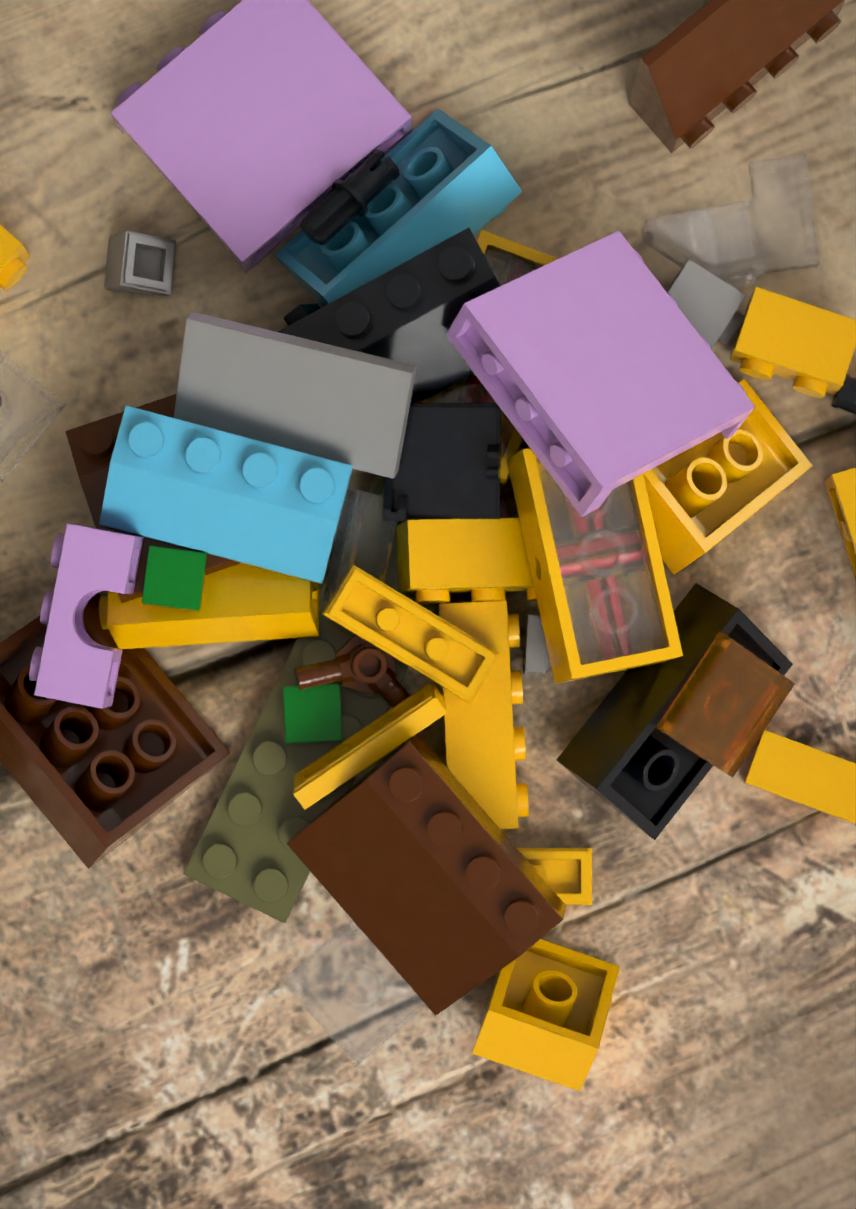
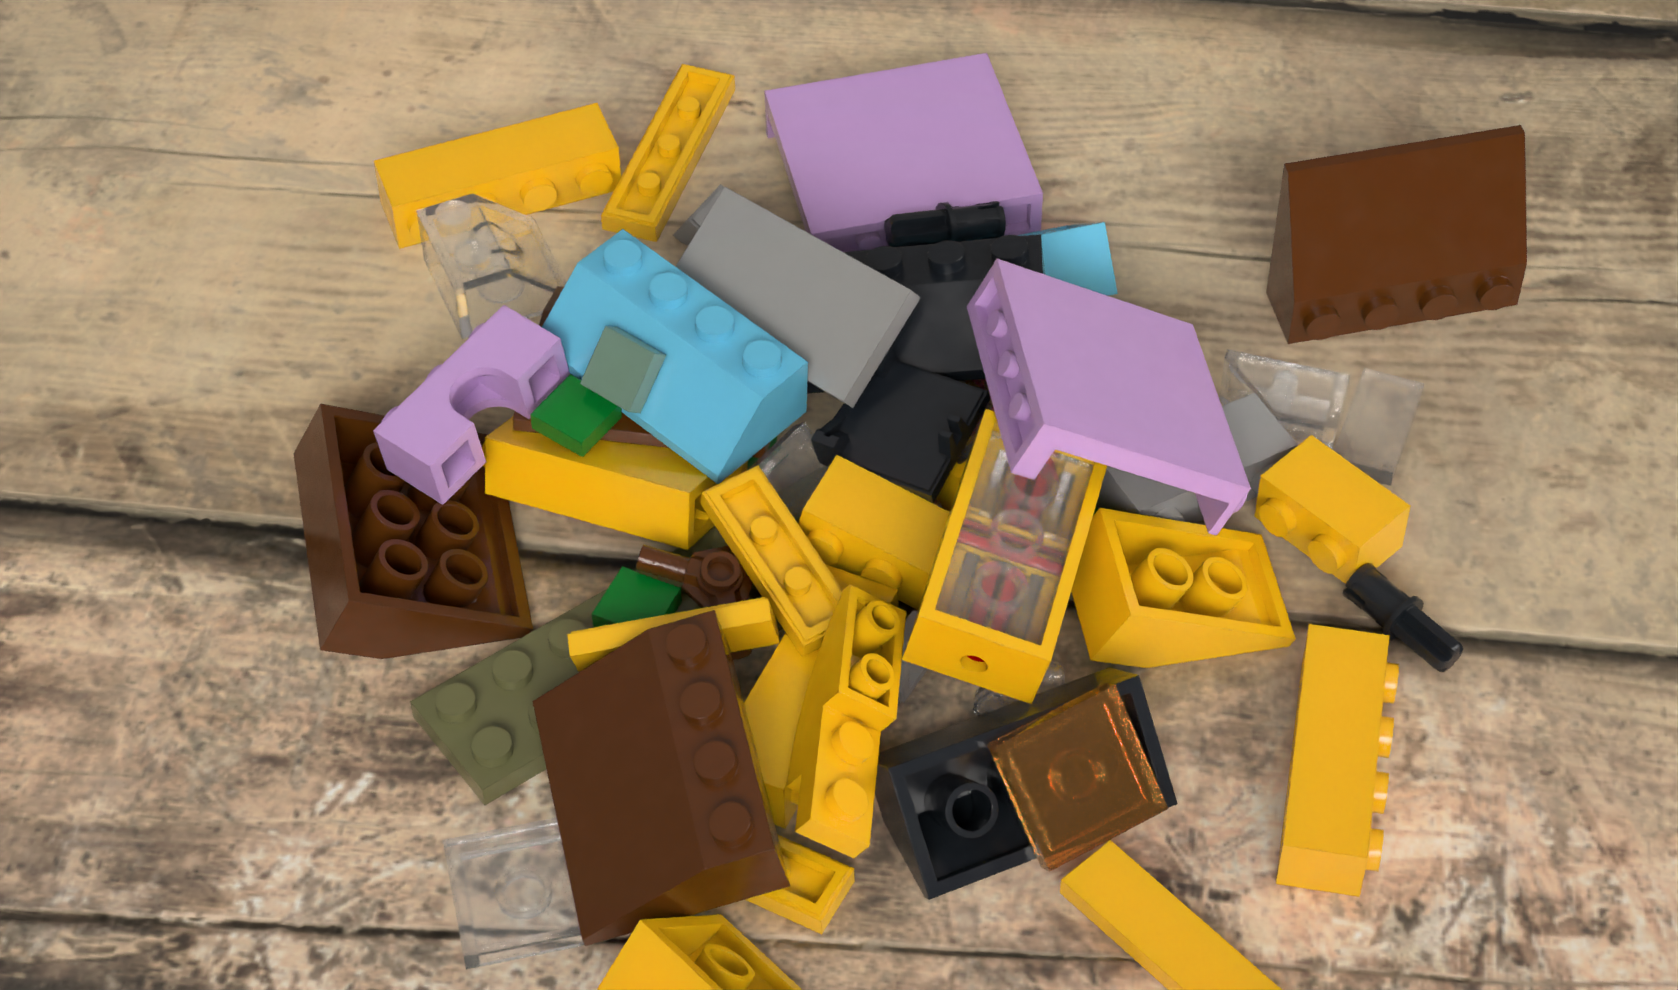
camera: 25 degrees right, 35 degrees down
(49, 196) = (668, 152): none -> yellow tile
(199, 535) = (622, 369): none -> sand green tile
(532, 752) = (842, 719): none -> yellow slope

